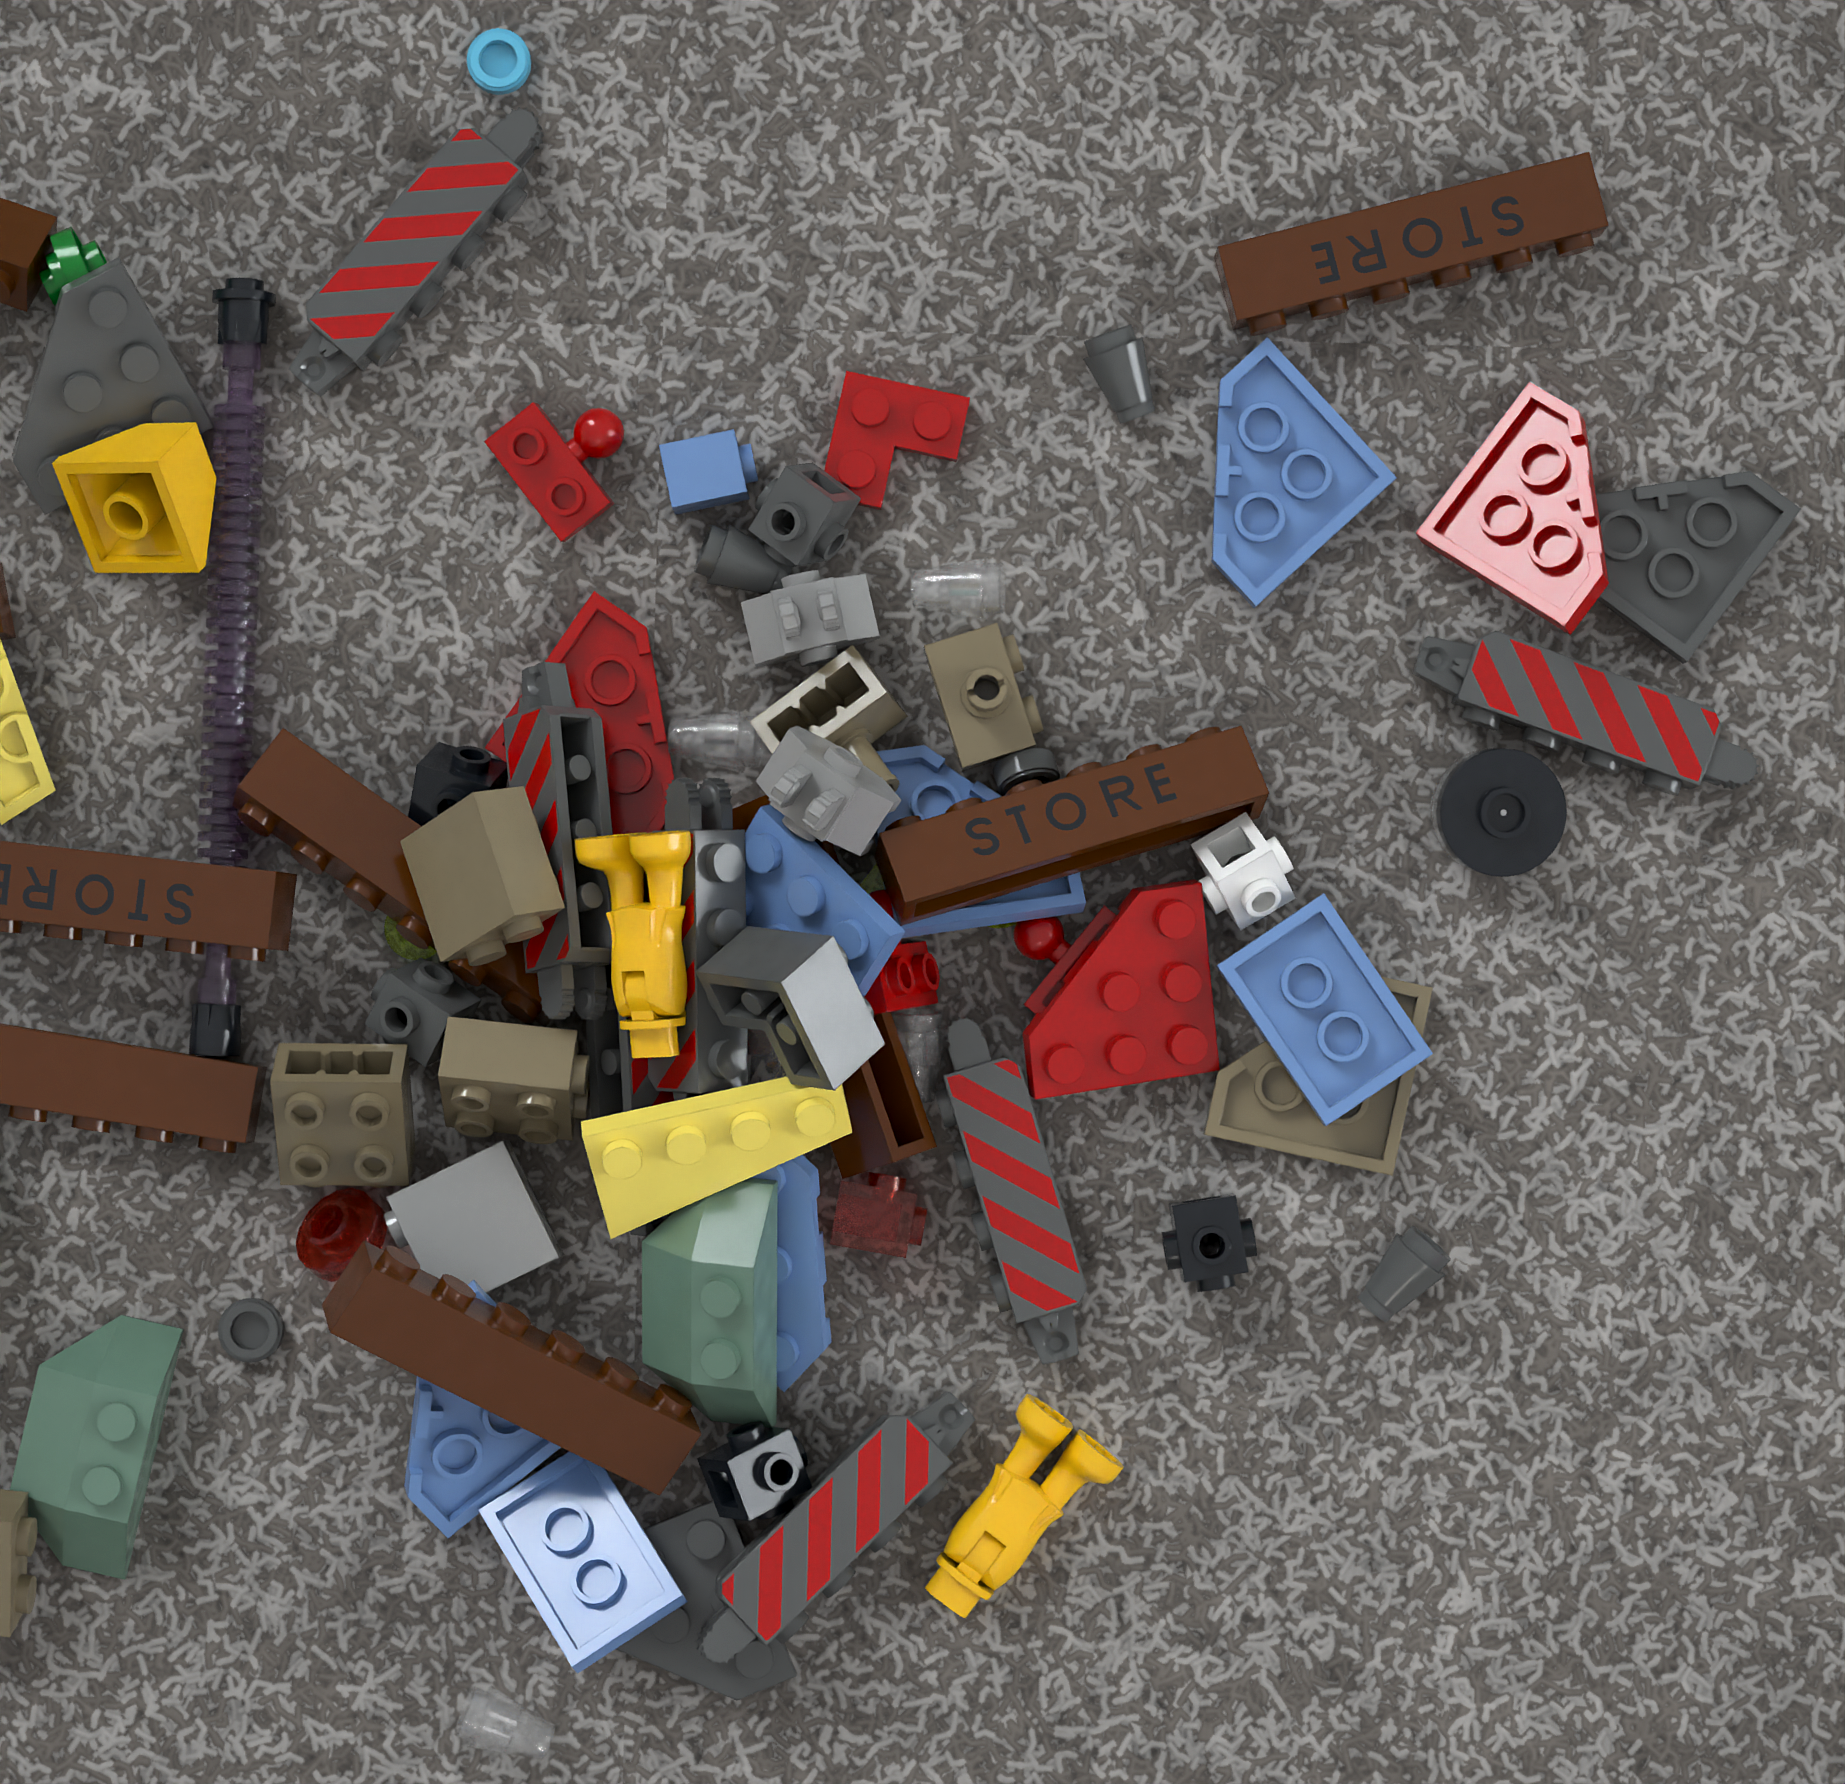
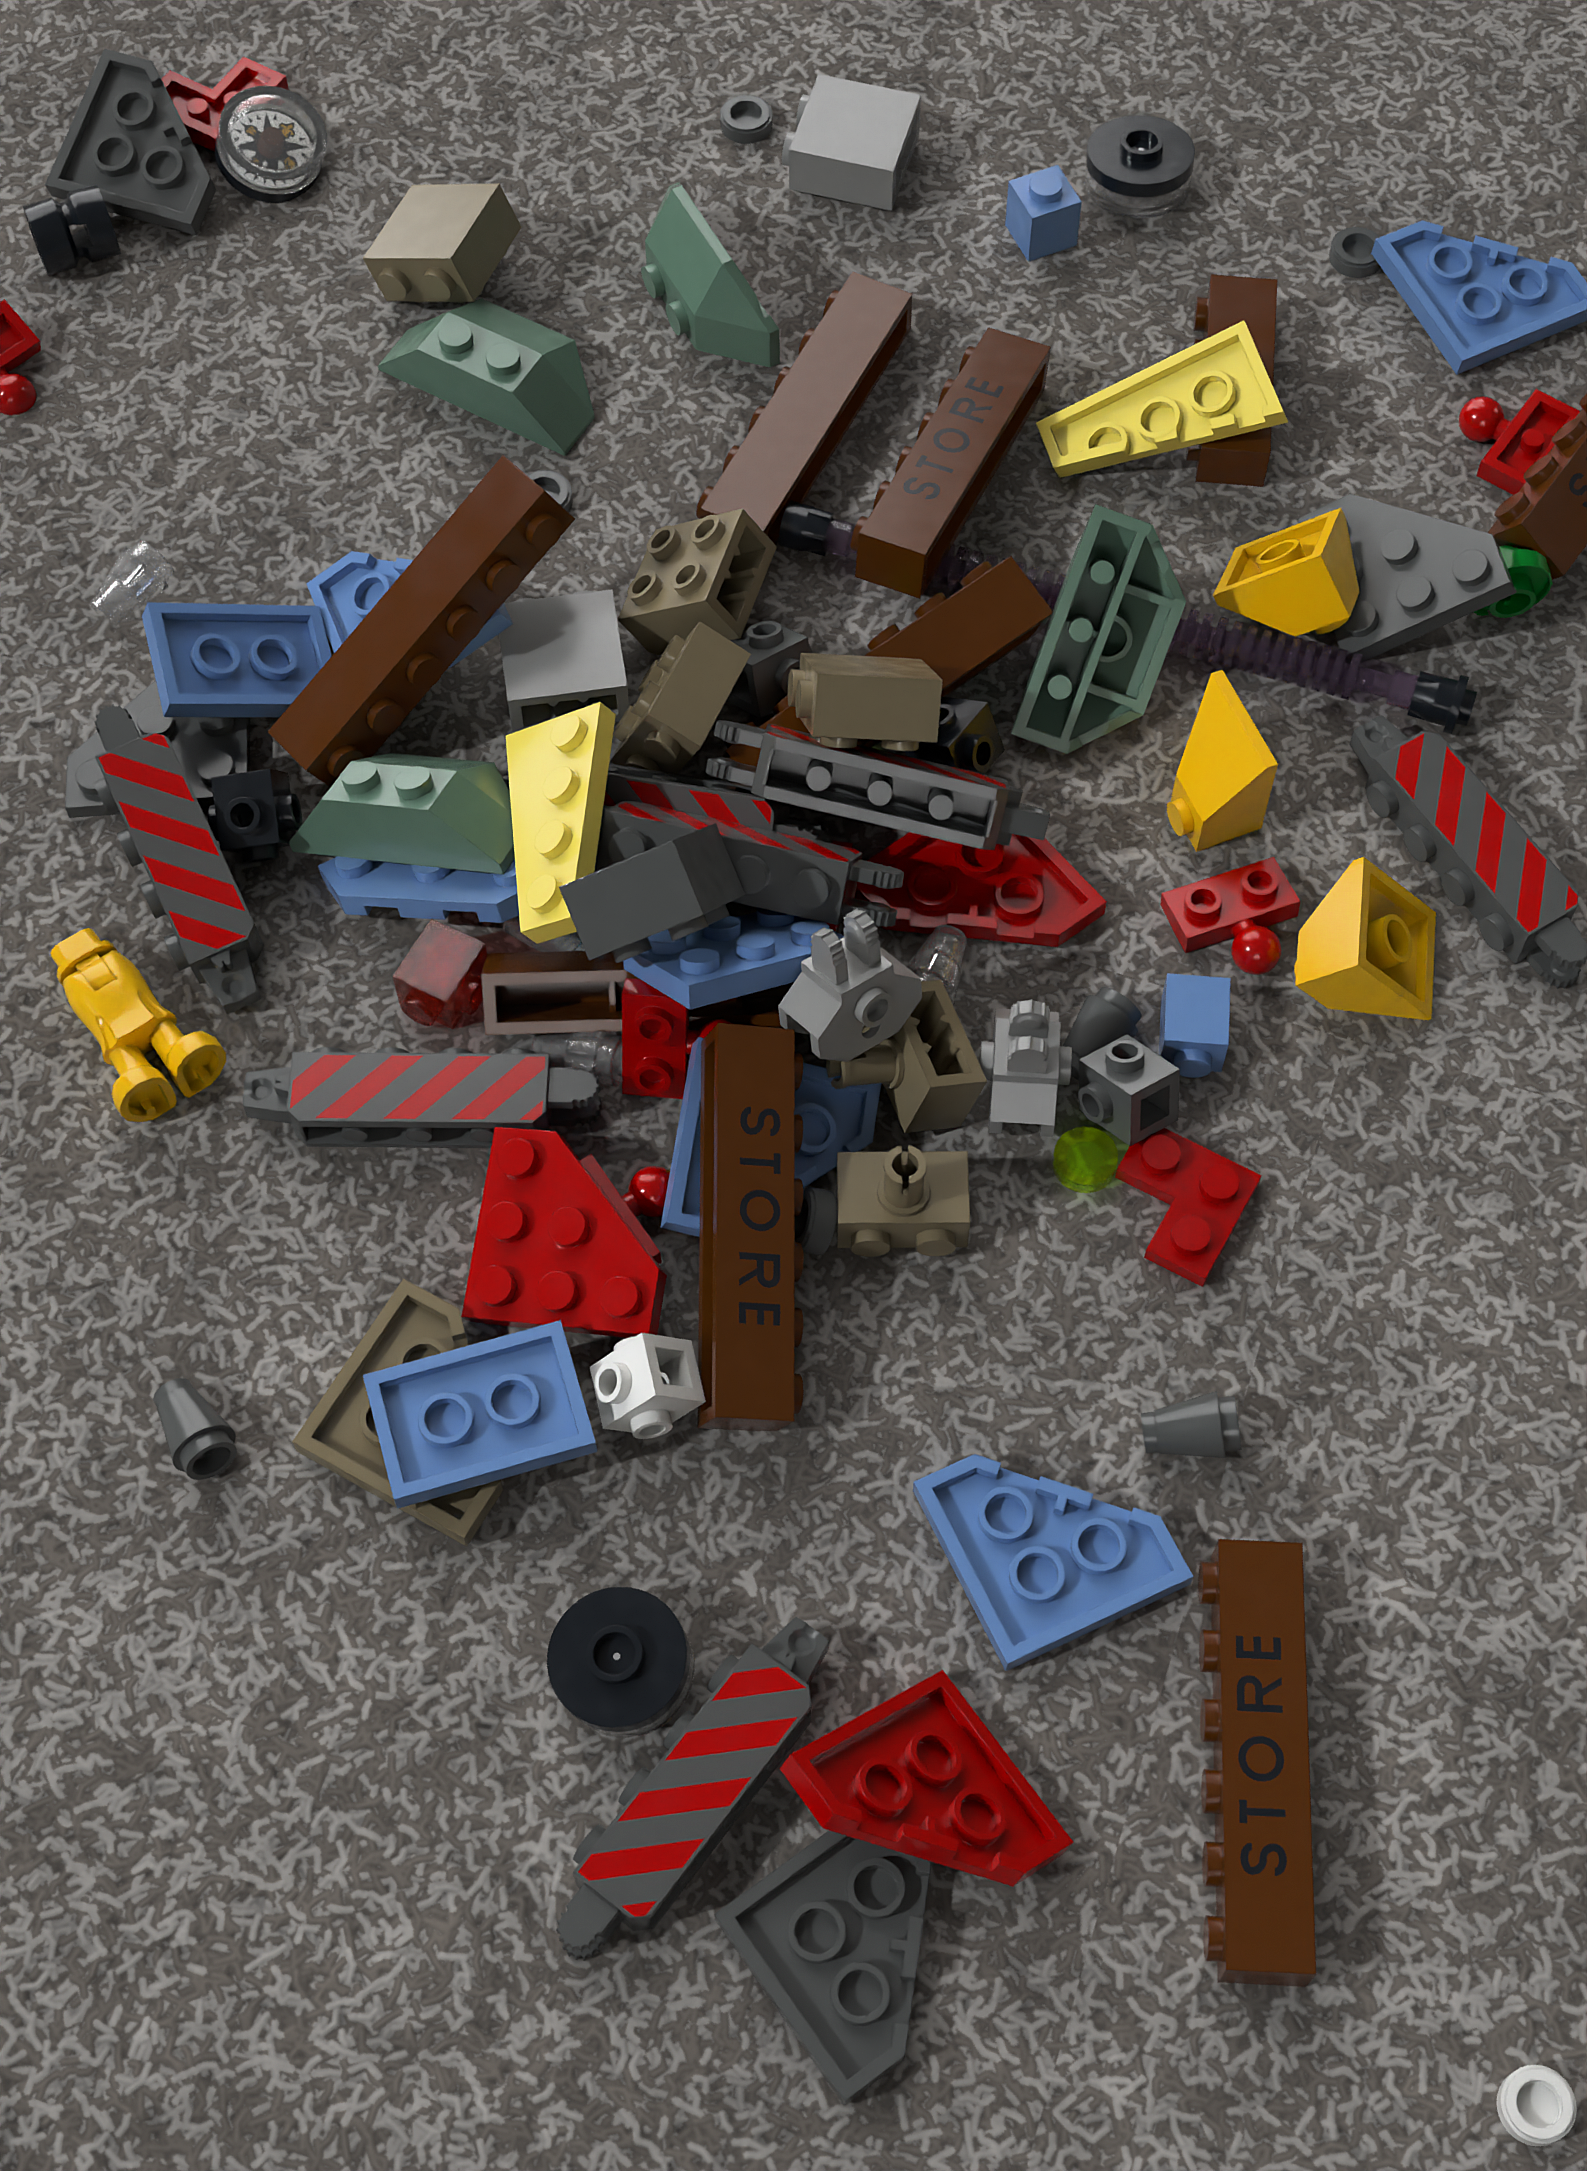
camera: 105 degrees right, 25 degrees down
(299, 669) = (1102, 636): none -> sand green wedge
(337, 1229) = (594, 564): clear red plate -> none
(415, 516) = (1222, 773): none -> yellow slope
(567, 321) = (1369, 947): none -> yellow slope
(645, 936) = (770, 805): yellow piece -> none
(876, 541) = (1085, 1159): none -> clear neon green tile
(961, 588) = (1014, 1219): clear cone -> none
(1197, 1218) = (300, 1249): black brick -> none

